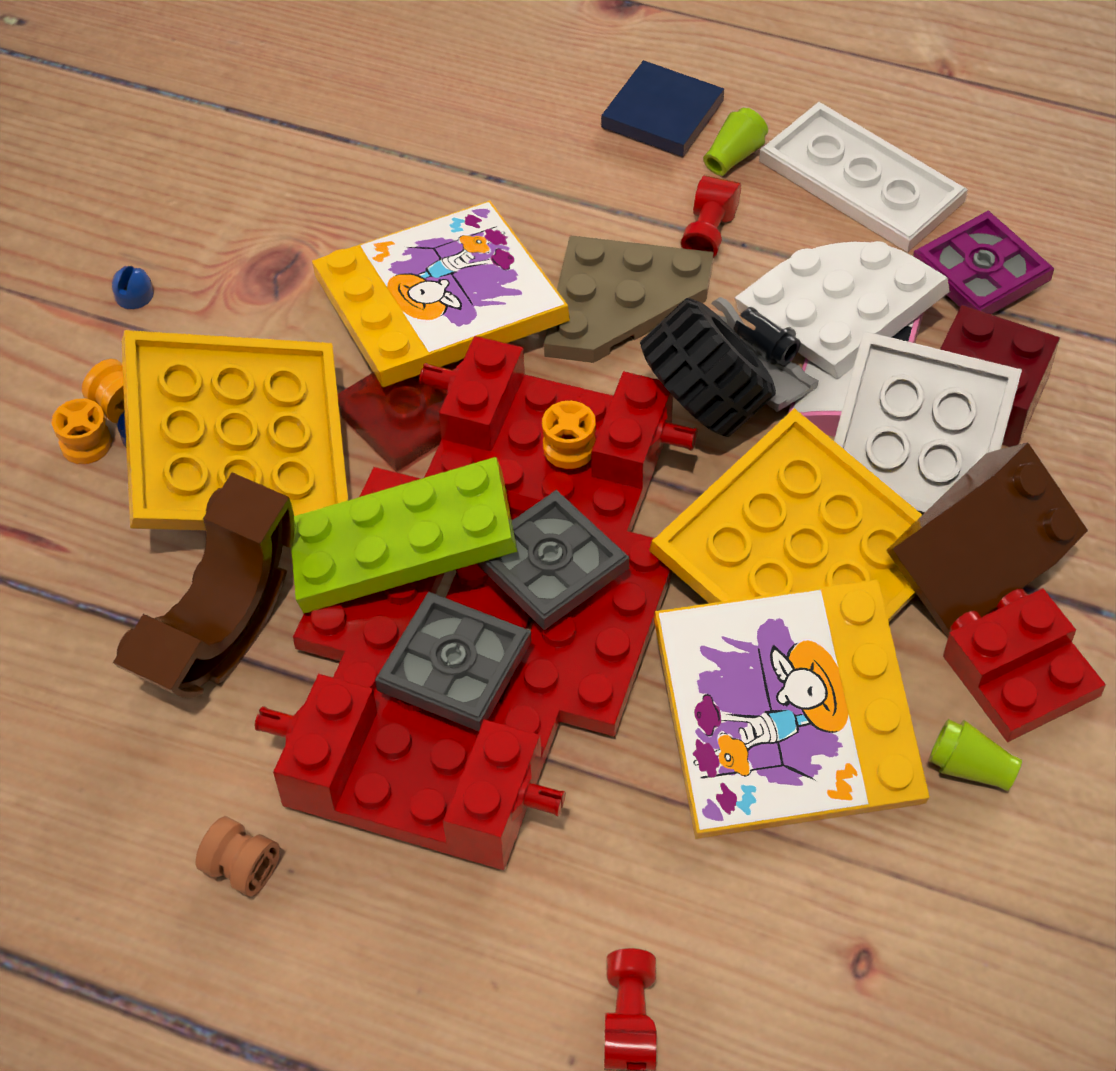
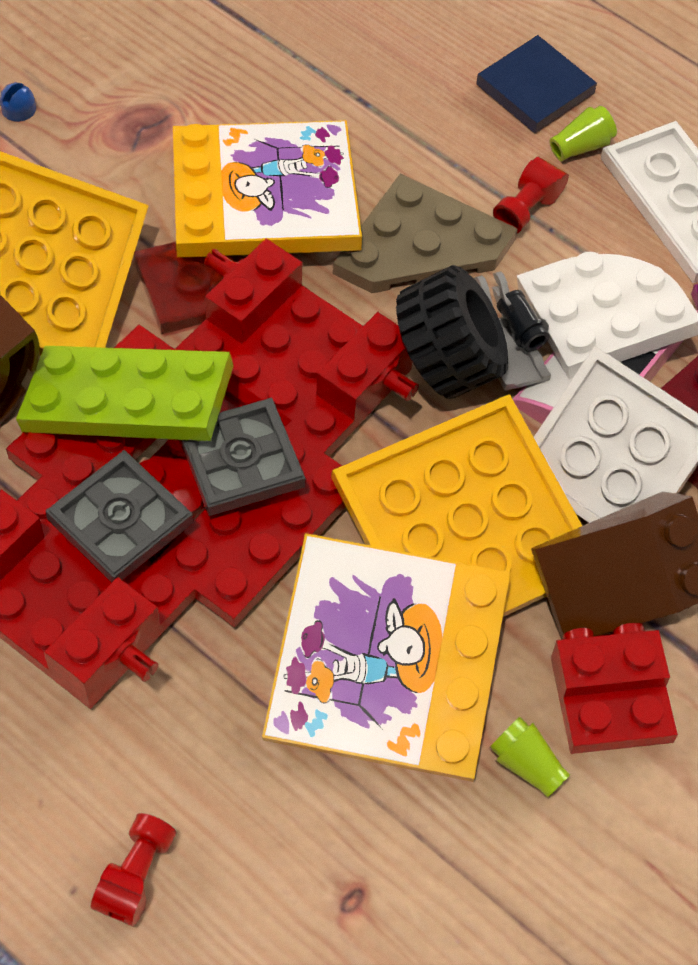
camera: 15 degrees right, 5 degrees up
(577, 426) = (308, 339): light orange wheel -> none

